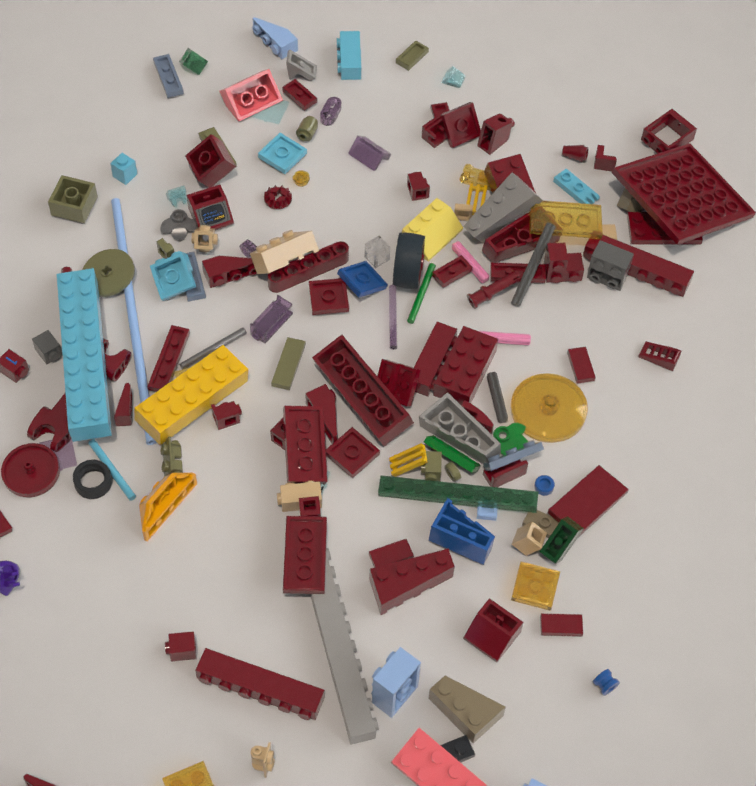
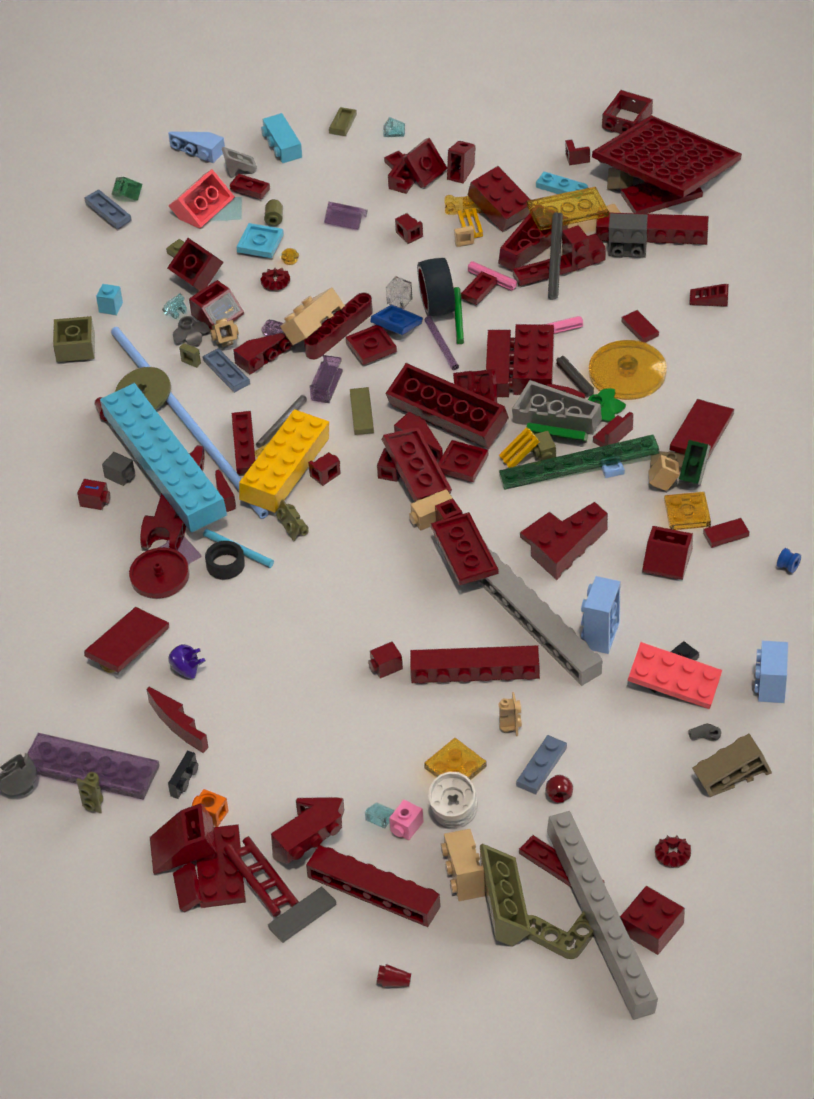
camera: 15 degrees left, 10 degrees down
(164, 500) = (304, 553): light orange wedge -> none
(173, 275) = (211, 371): medium azure plate -> none
(334, 112) = (291, 192): clear purple beam -> none
(438, 226) = (448, 246): light yellow slope -> none
(452, 471) = (565, 445): olive tile -> none
(461, 534) = (608, 491): blue wedge -> none
(465, 707) = (672, 619): dark tan wedge -> none
(486, 293) = (522, 294): dark red pin -> none
(502, 207) = (503, 215): light grey wedge -> none
(513, 455) = (615, 412): sand blue plate -> none
(544, 485) = (656, 429): blue tile -> none
(575, 152) = (546, 155): dark red cone -> none

